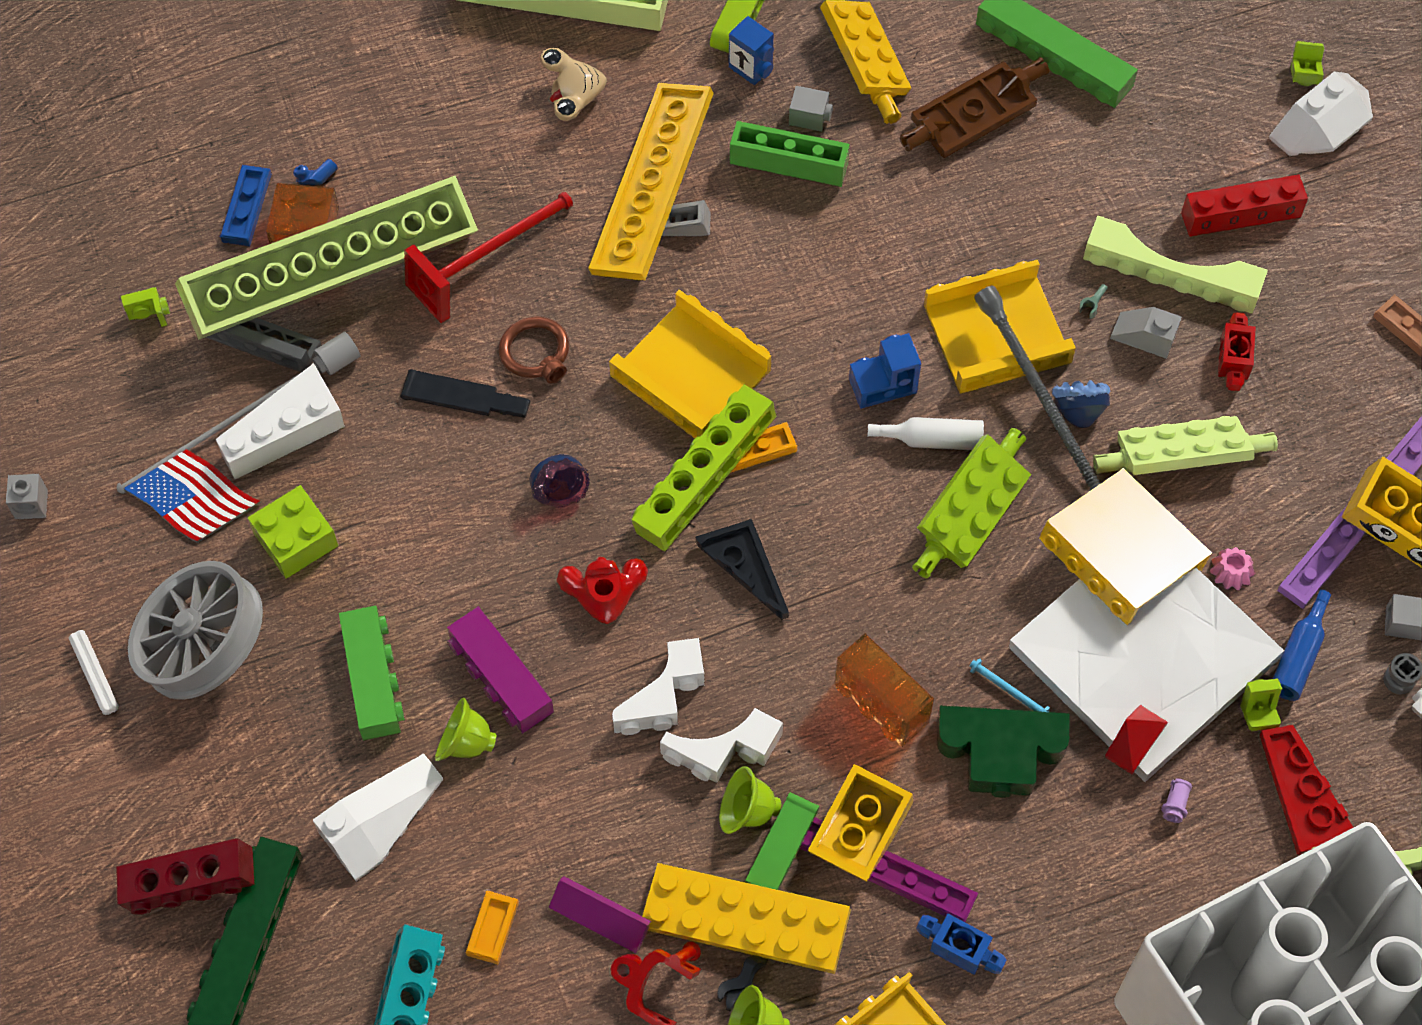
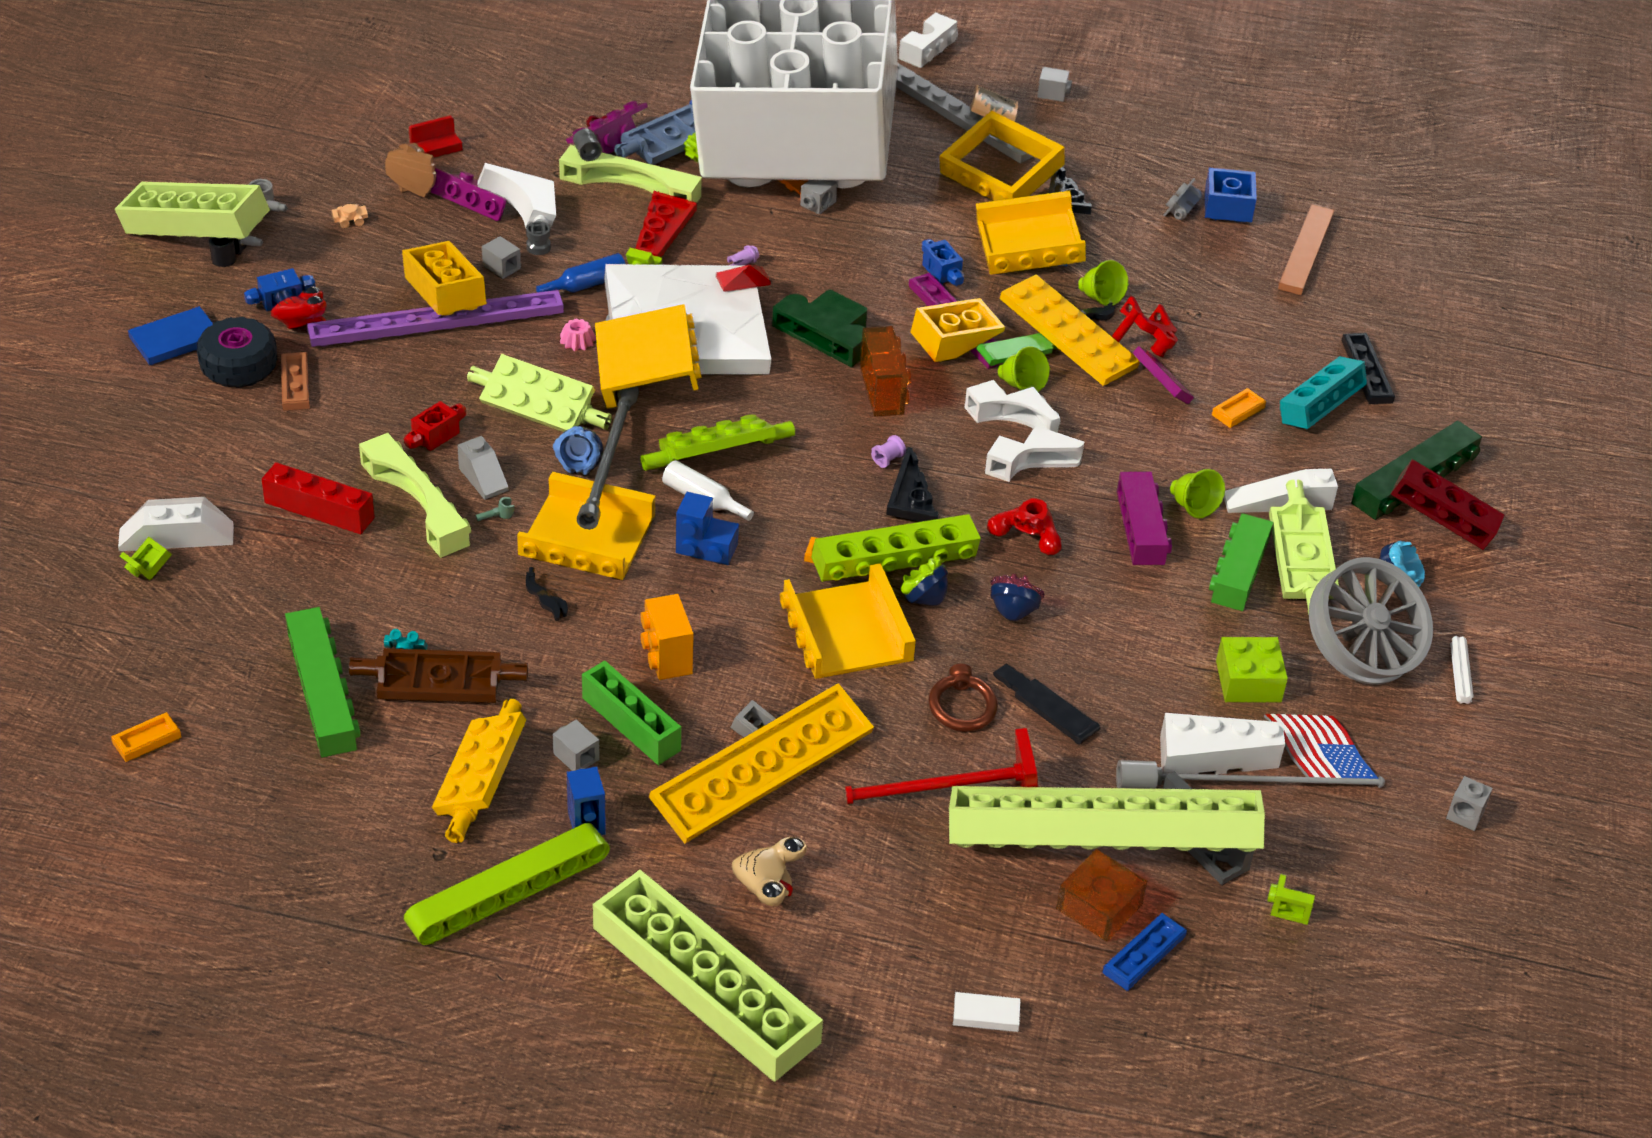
camera: 150 degrees left, 20 degrees down
(202, 760) = (1404, 557): none -> medium azure hair
(311, 719) = (1301, 544): none -> yellowish green plate
(317, 176) = (1063, 938): blue arm -> none
(338, 86) = (986, 1011): none -> white tile
(651, 444) = (927, 584): none -> dark blue hair
(805, 600) = (888, 451): none -> lavender bush
(819, 234) = (667, 637): none -> light orange brick
(960, 233) = (546, 601): none -> black hair
(976, 666) = (782, 332): medium azure axle -> none
(1028, 117) = (410, 642): none -> teal piece

